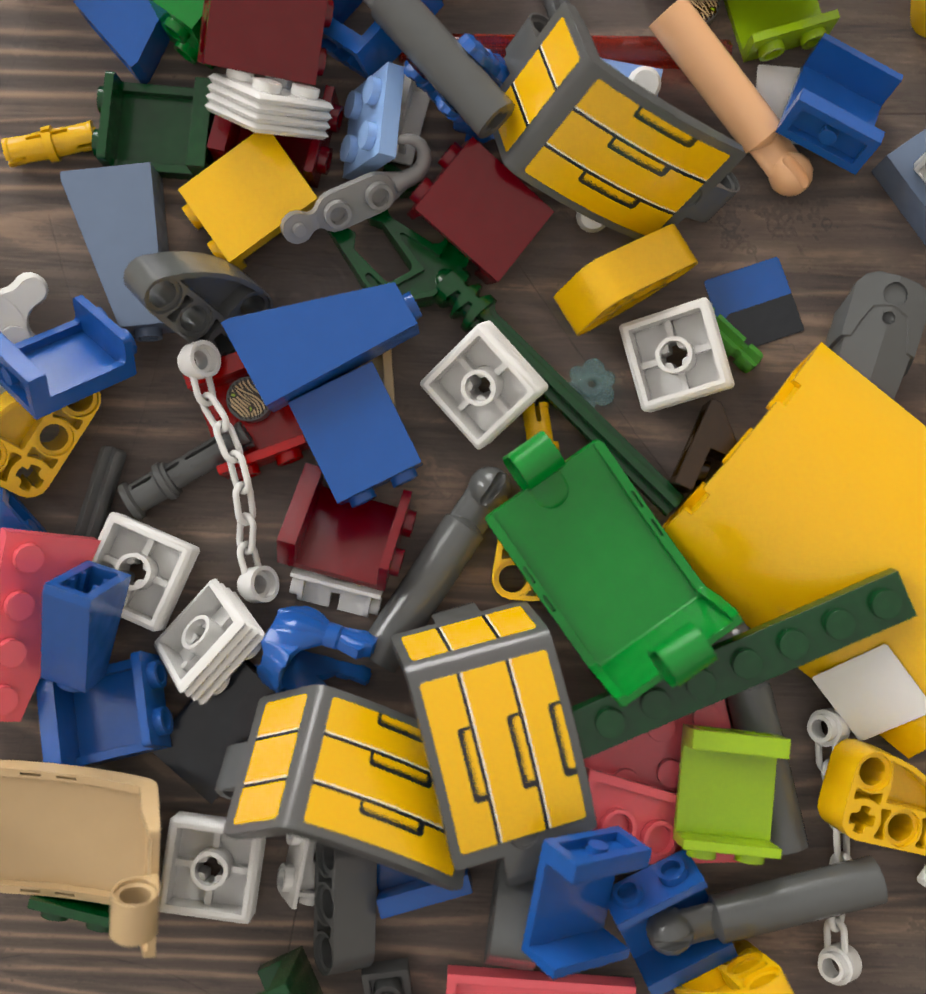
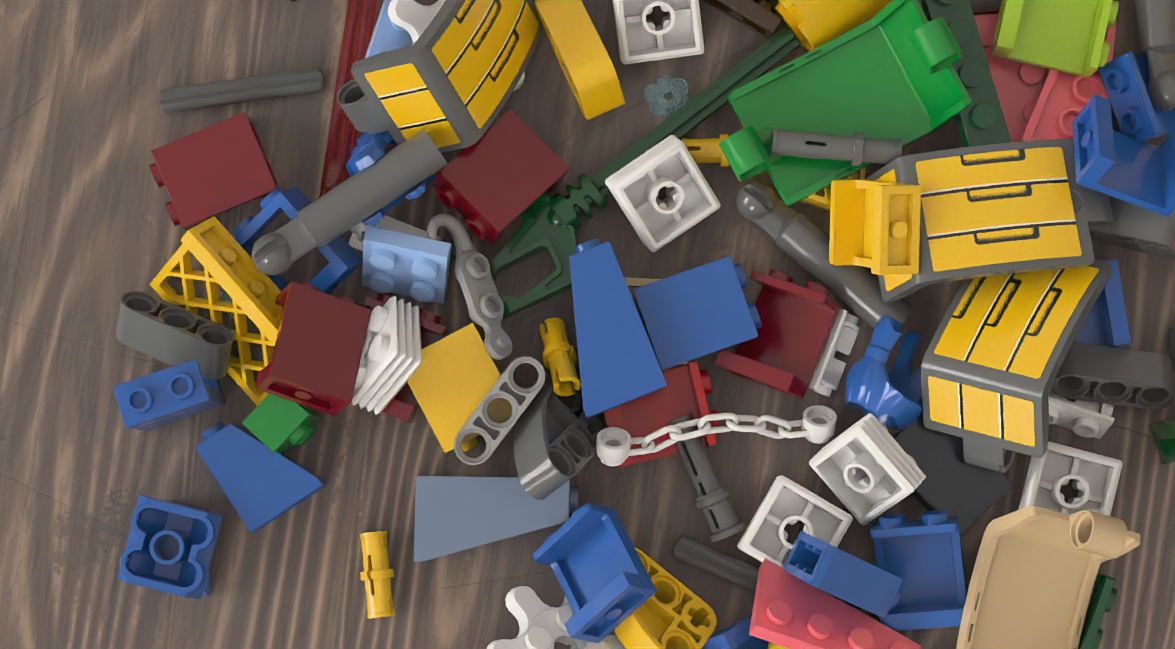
camera: 80 degrees left, 0 degrees up
(154, 126) = (375, 470): dark green panel -> none
(207, 220) = (492, 430): none -> light grey beam
(245, 401) = (647, 413): tile -> none
(290, 292) = (559, 357): none -> yellow pin
(469, 615) = (875, 225): none -> yellow panel
(554, 562) = (835, 146): none -> dark grey pin

